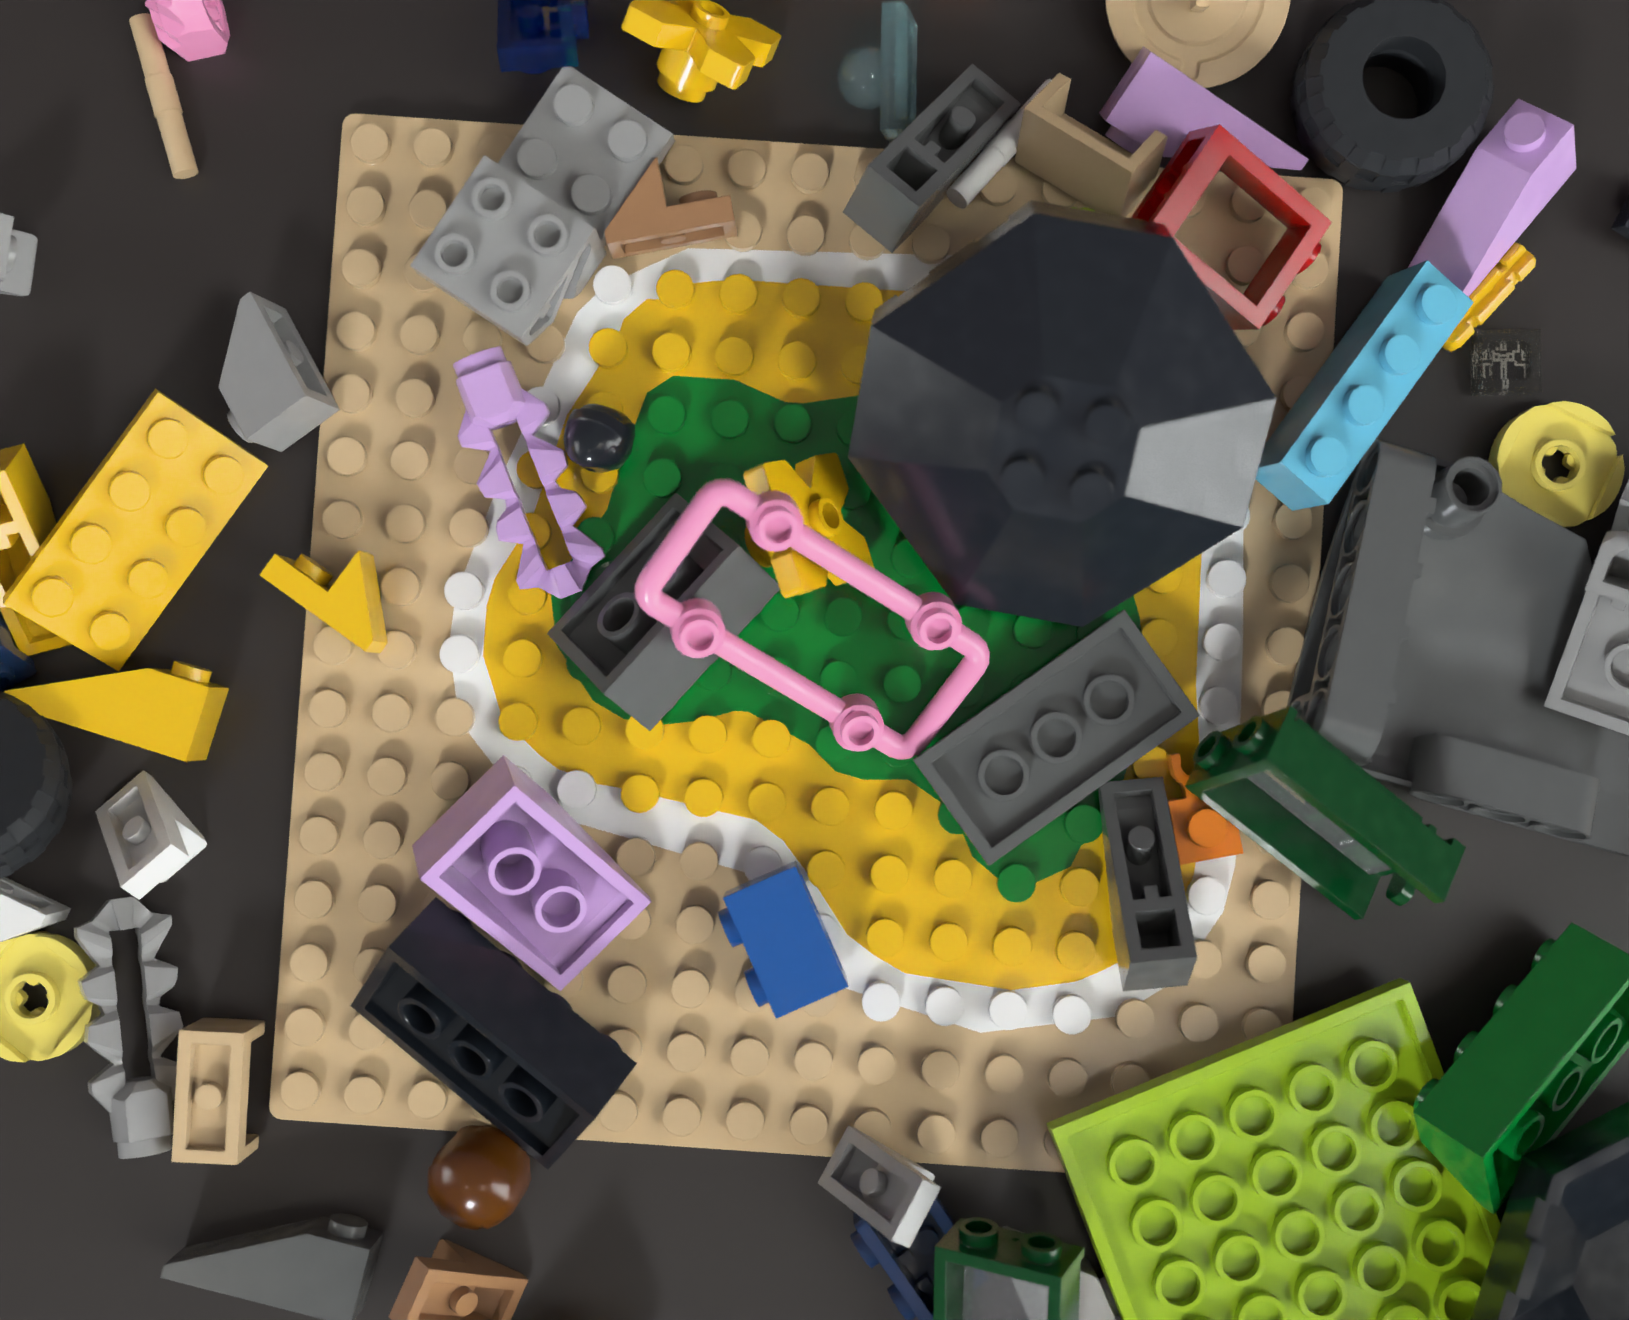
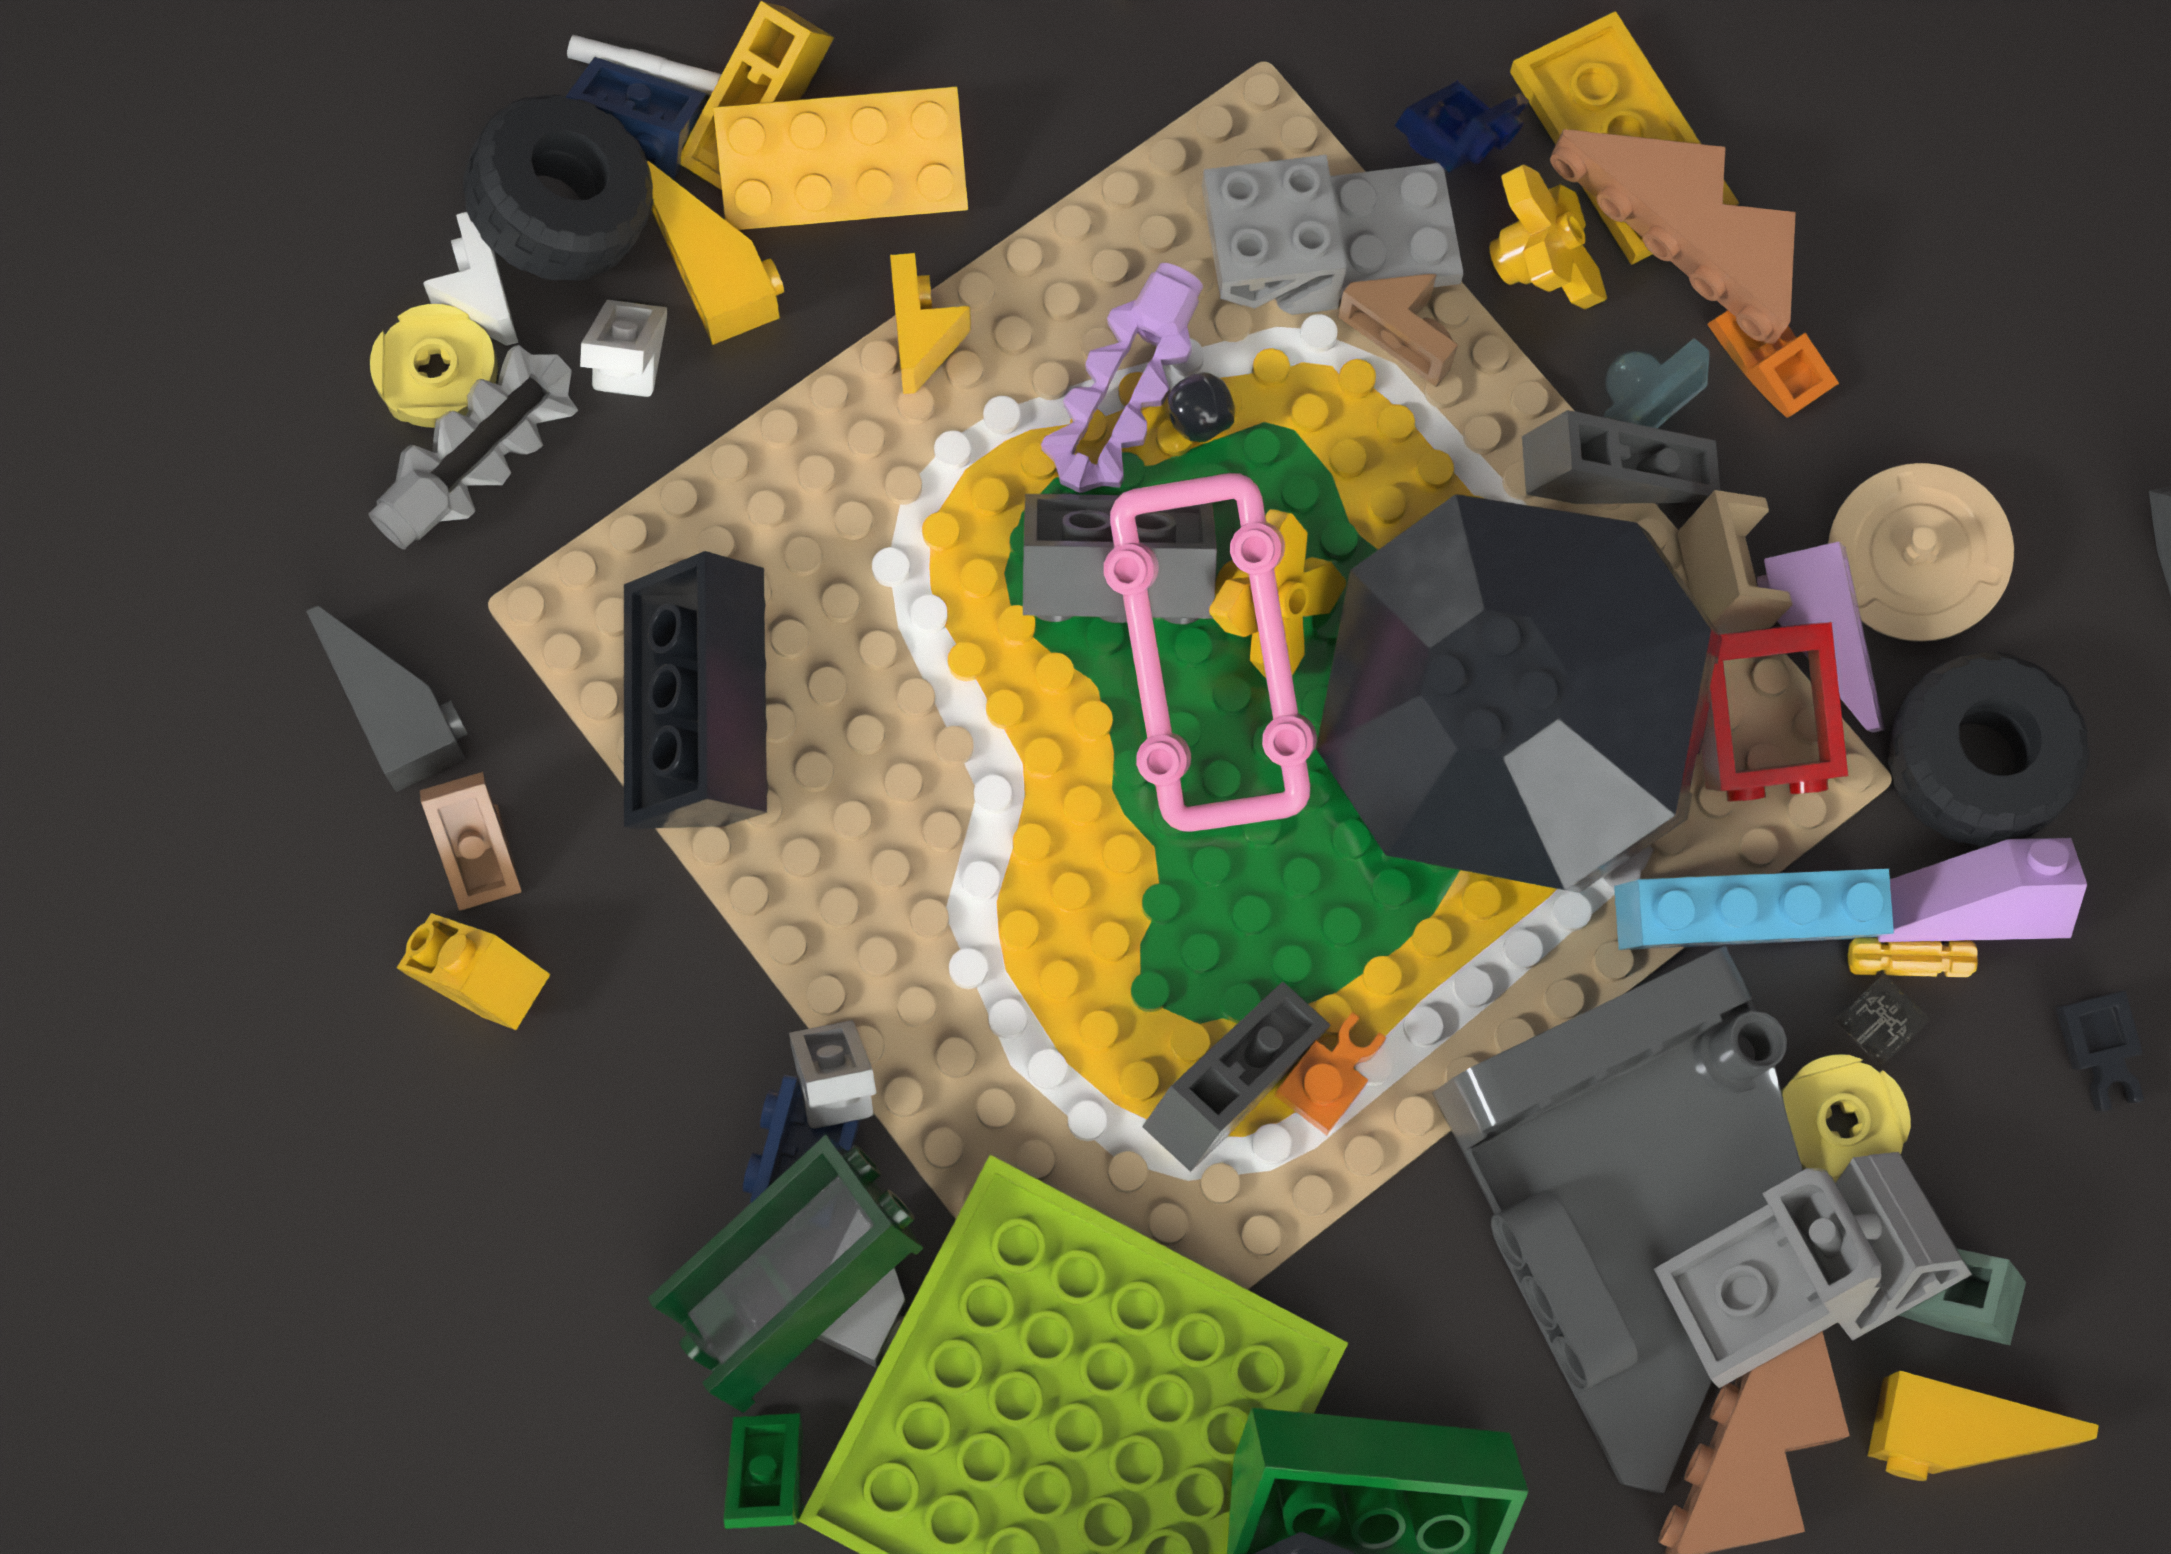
camera: 45 degrees right, 15 degrees down
(214, 1091) = (476, 538): tan panel -> none
(271, 378) = (1033, 159): light grey slope -> none
(478, 1177) = (572, 785): reddish brown hair -> none
(528, 874) = (837, 625): lavender slope -> none
(783, 940) = (954, 843): blue brick -> none
(990, 160) = (1650, 510): white piece -> none
(1056, 737) = (1286, 915): dark grey plate -> none
(1321, 813) = (1410, 1146): dark green door -> none

